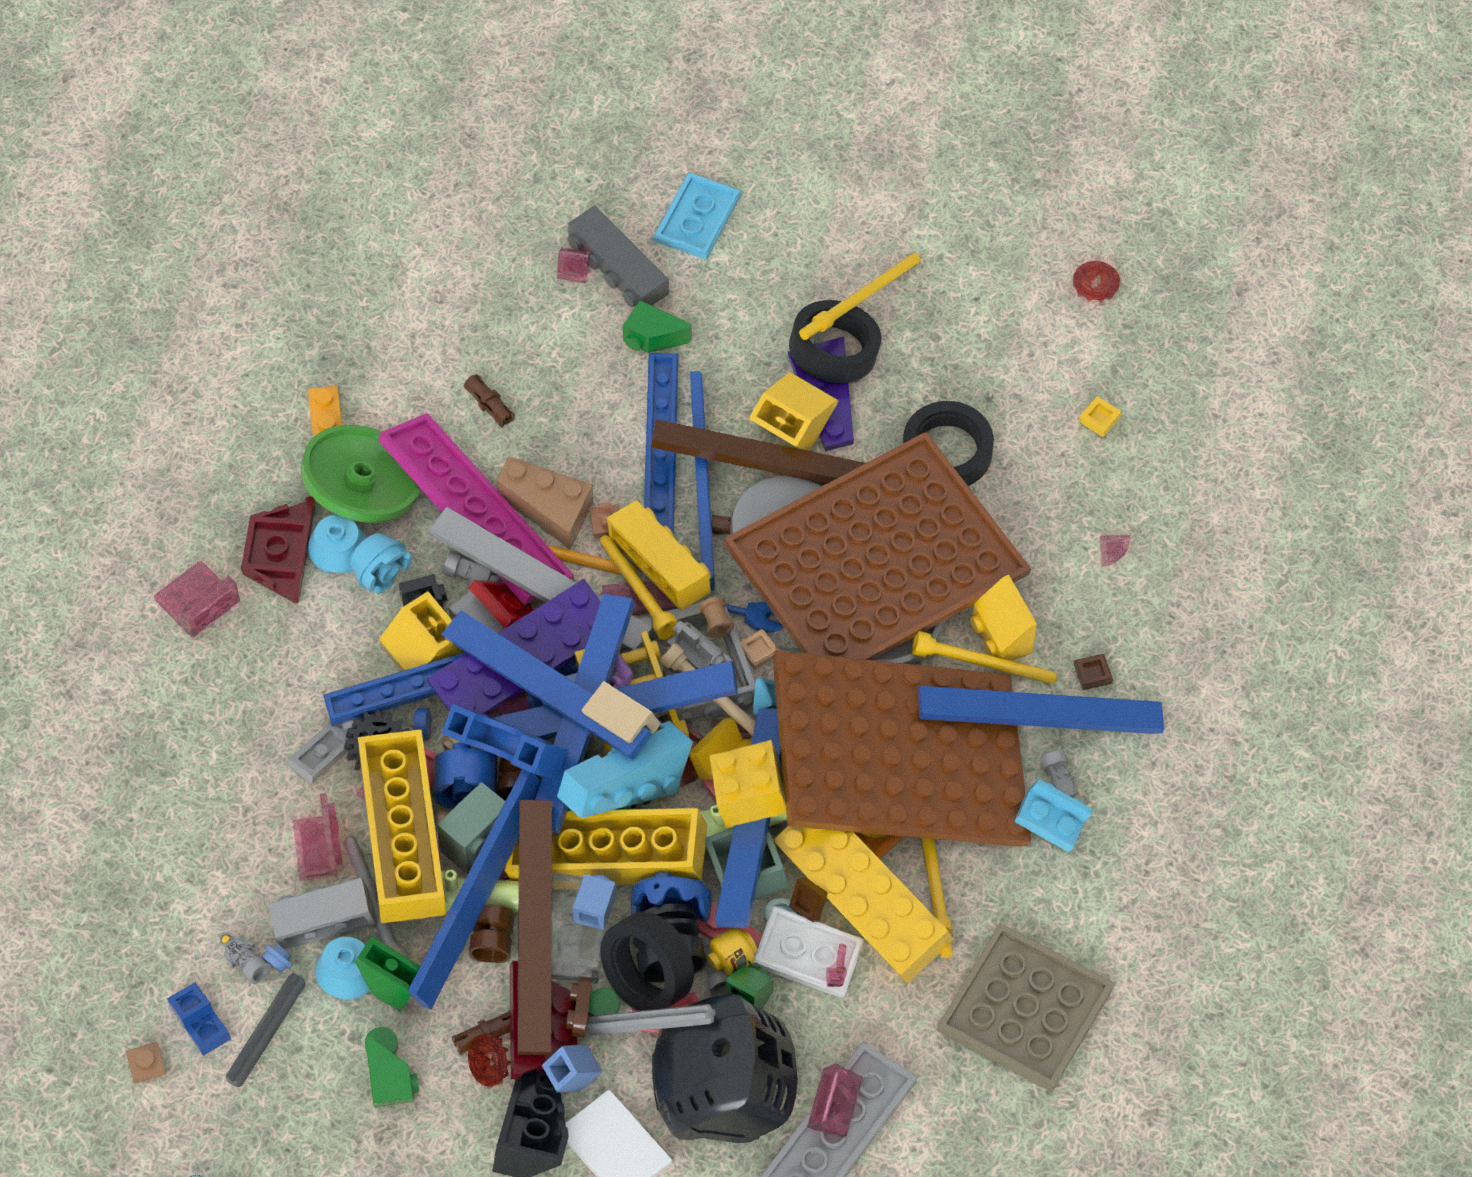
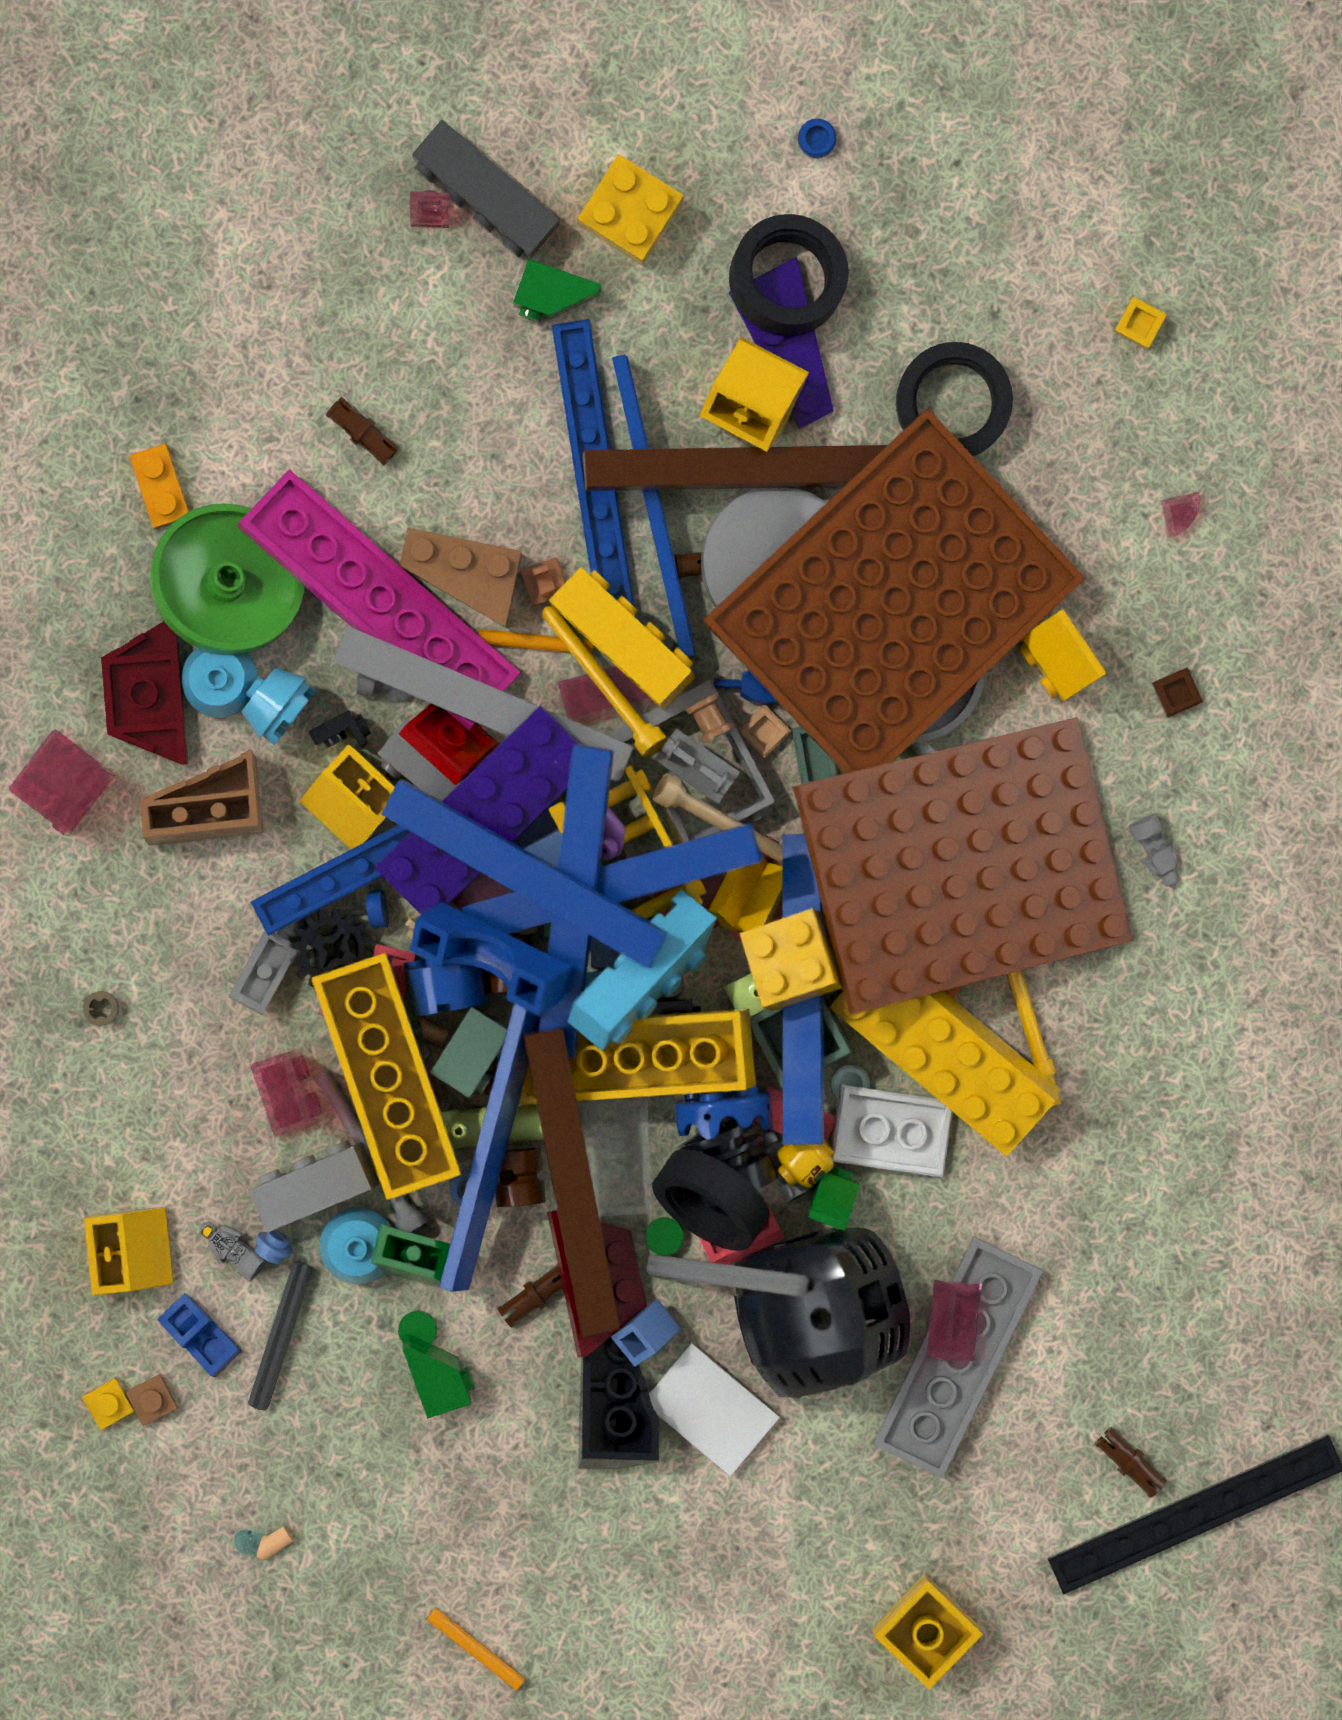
camera: 10 degrees left, 30 degrees up
(108, 1059) = (108, 1403): none -> yellow plate
(156, 937) = (128, 1250): none -> yellow slope
(181, 770) = (100, 996): none -> dark tan bush
(305, 626) = (207, 806): none -> medium nougat wedge
(480, 1062) = (537, 1328): clear red gear -> none
(581, 995) = (642, 1274): reddish brown plate -> none
(594, 901) = (636, 1138): medium blue brick -> none
(619, 713) = (624, 912): tan panel -> none
(697, 216) = (575, 97): medium azure tile -> none
(723, 285) = (630, 209): none -> yellow brick
(764, 695) = (785, 808): medium azure slope -> none
(808, 899) = (882, 1073): reddish brown tile -> none
(825, 319) = (772, 259): yellow bar -> none
(836, 975) = (932, 1161): clear pink hand -> none
(872, 266) = (817, 138): none -> blue tile
(927, 645) = (971, 710): yellow piece -> none
(1025, 1007) = (1155, 1157): dark tan plate -> none
(1040, 710) = (1122, 773): blue tile -> none
(1052, 815) = (1154, 908): medium azure bracket -> none
(1088, 272) = (1124, 103): clear red gear -> none

